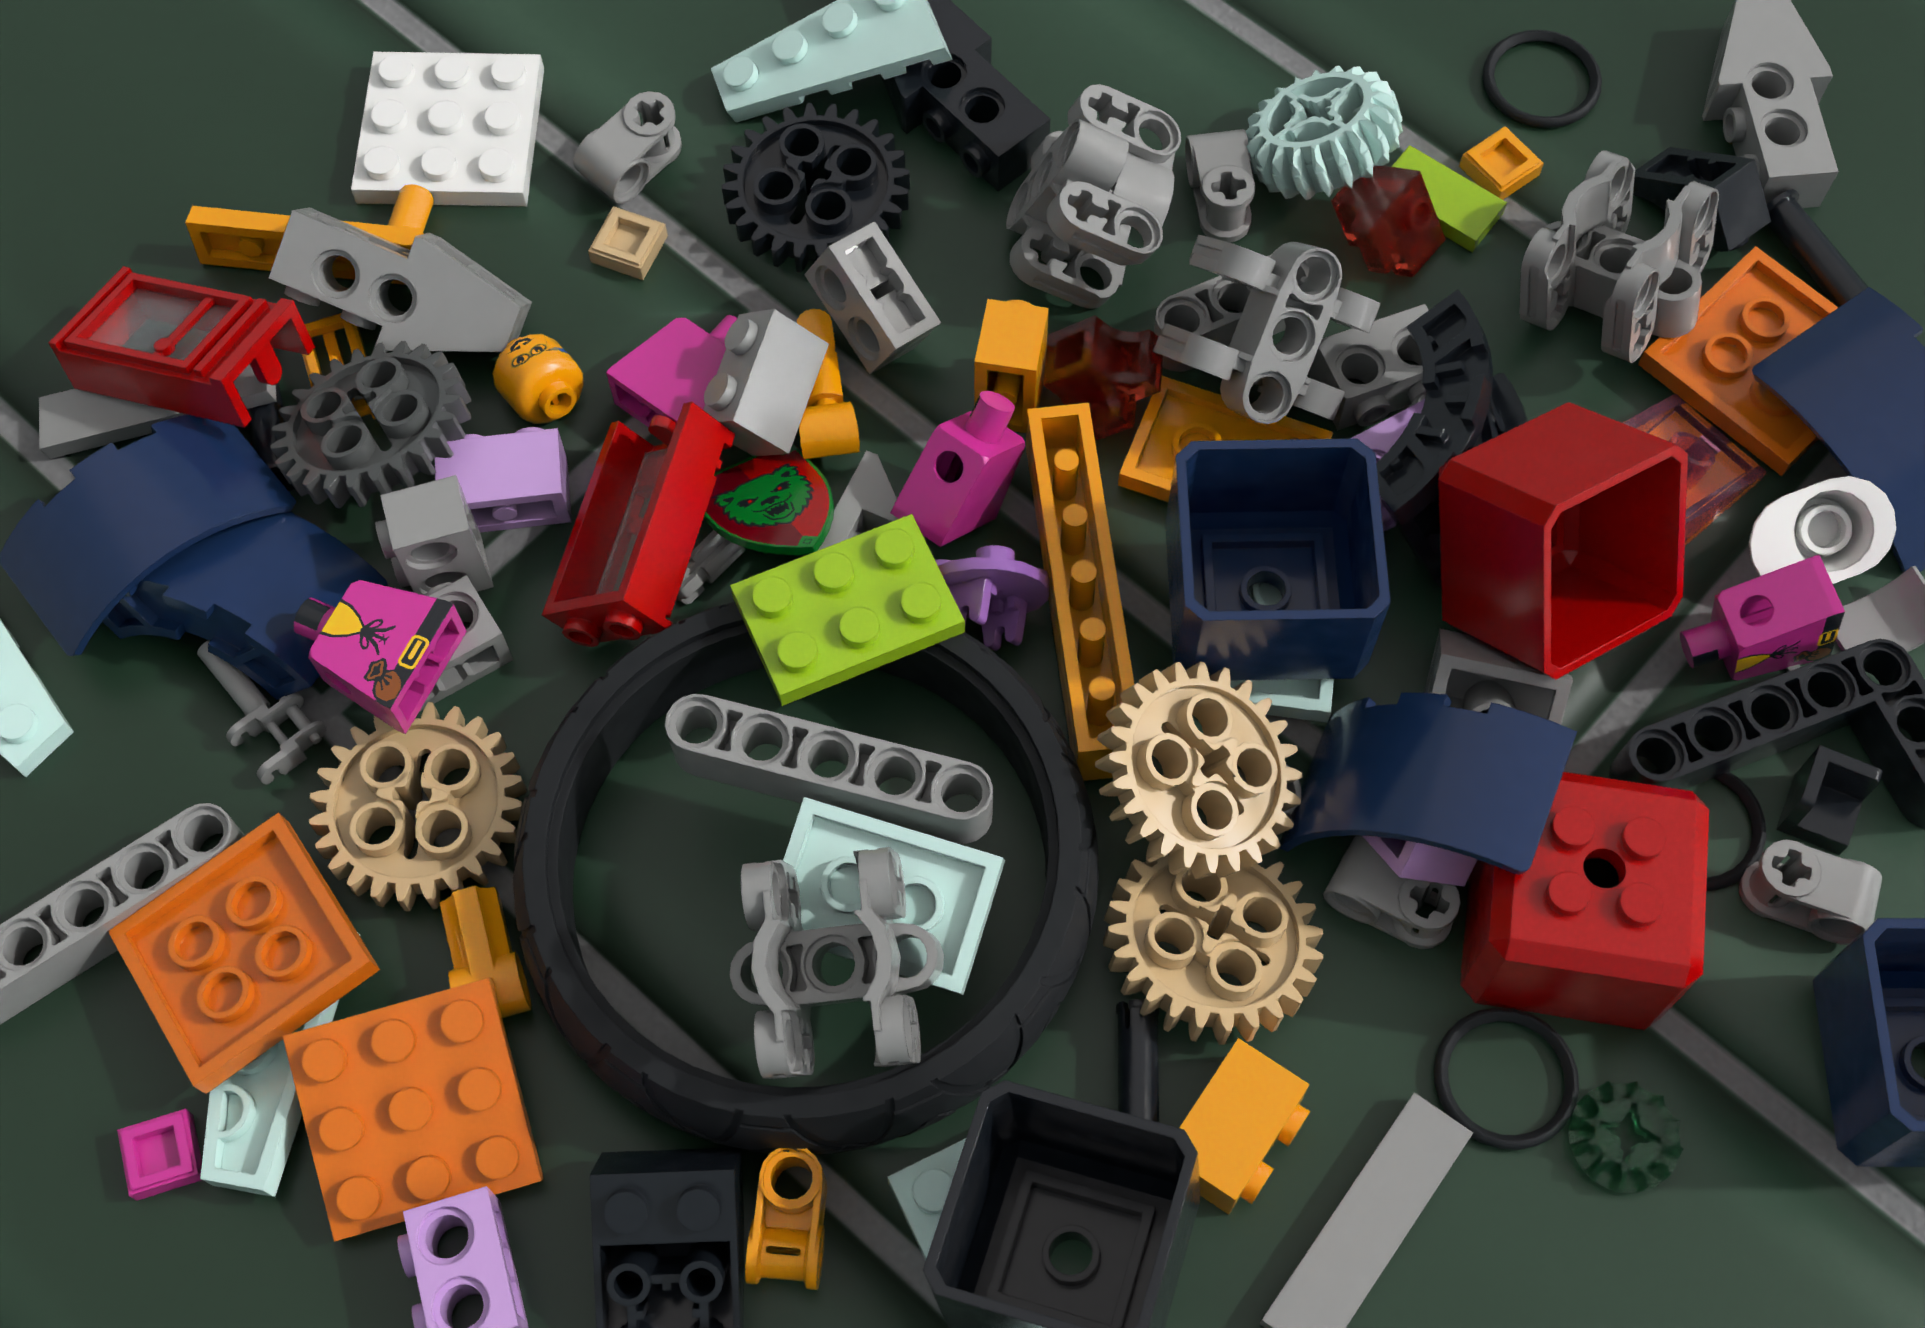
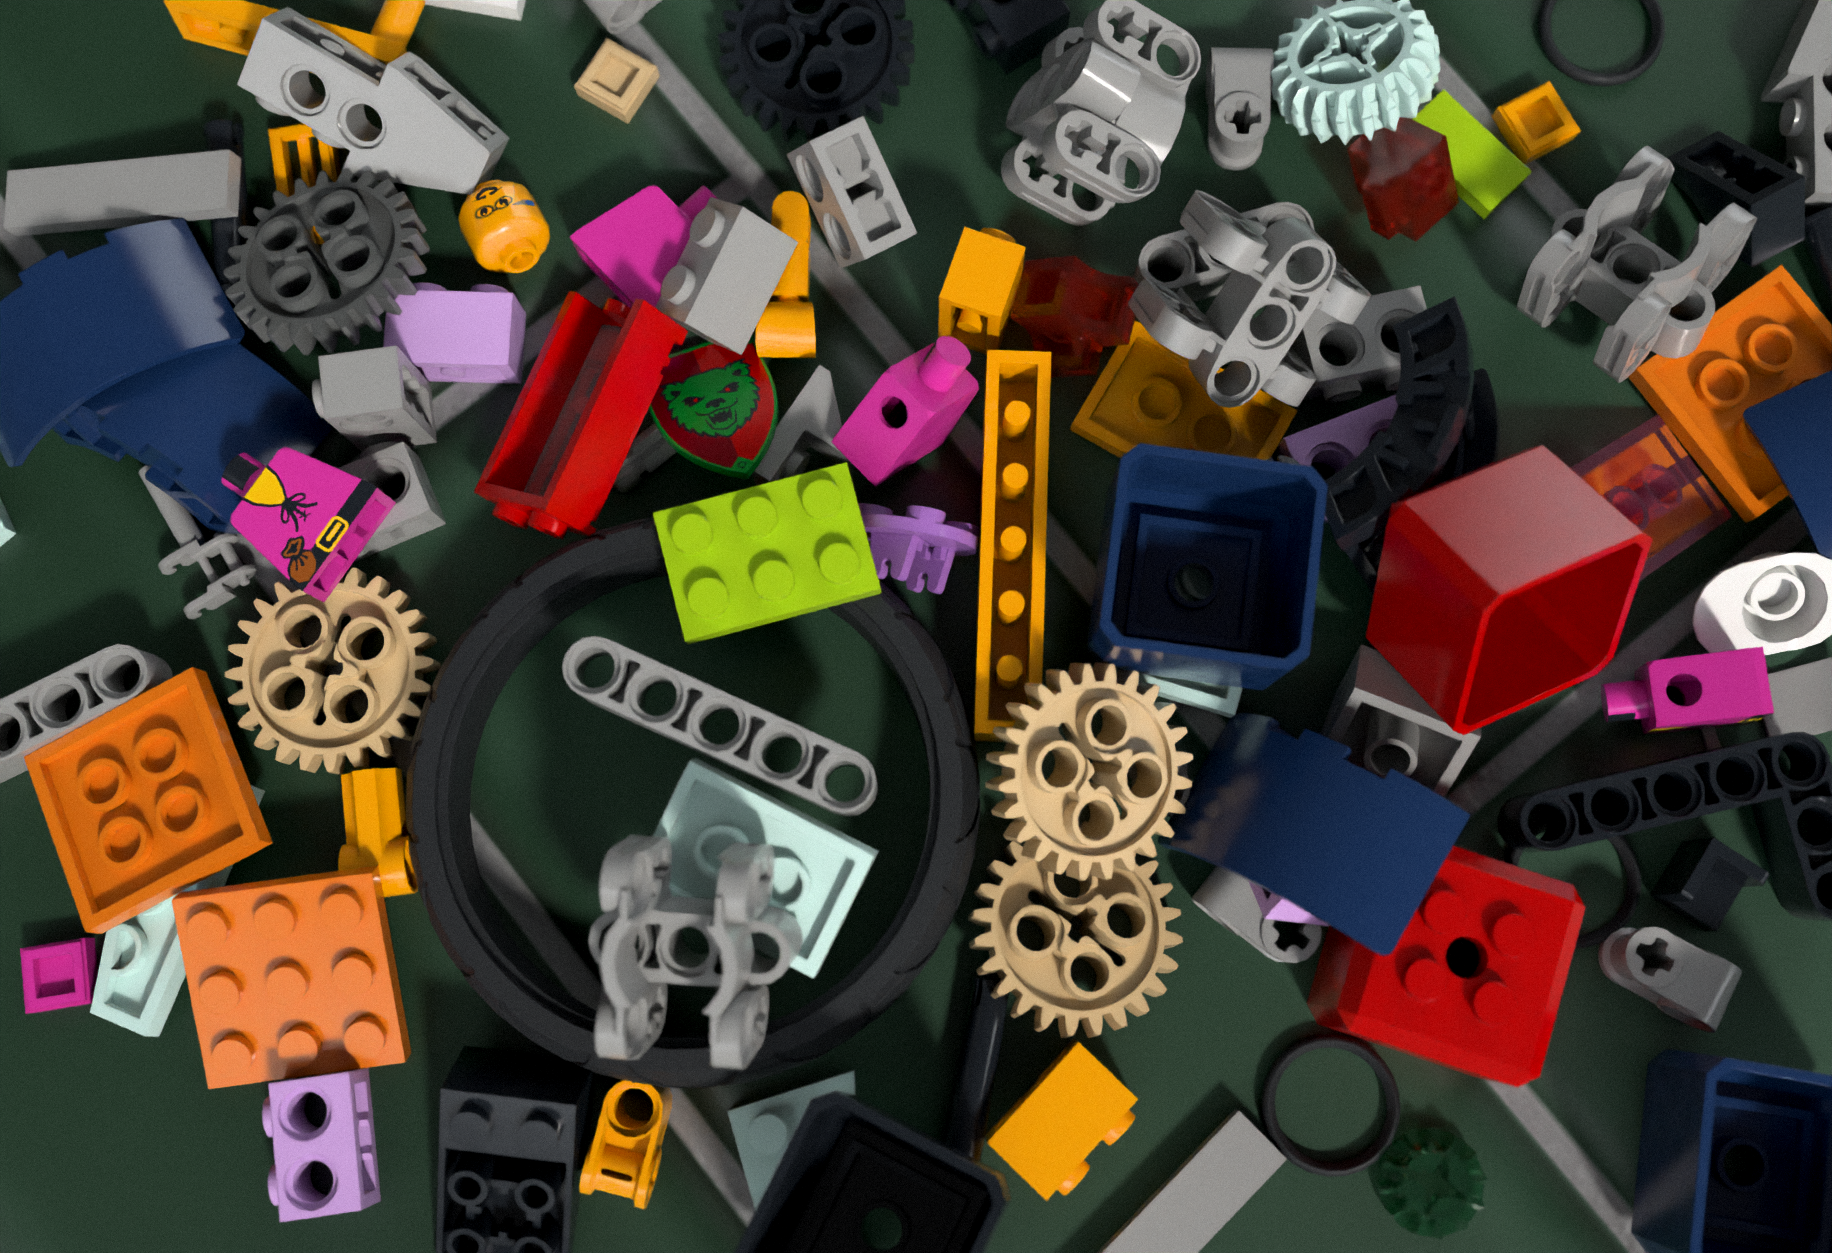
camera: 10 degrees right, 15 degrees up
(177, 344) = (139, 142): red door -> none

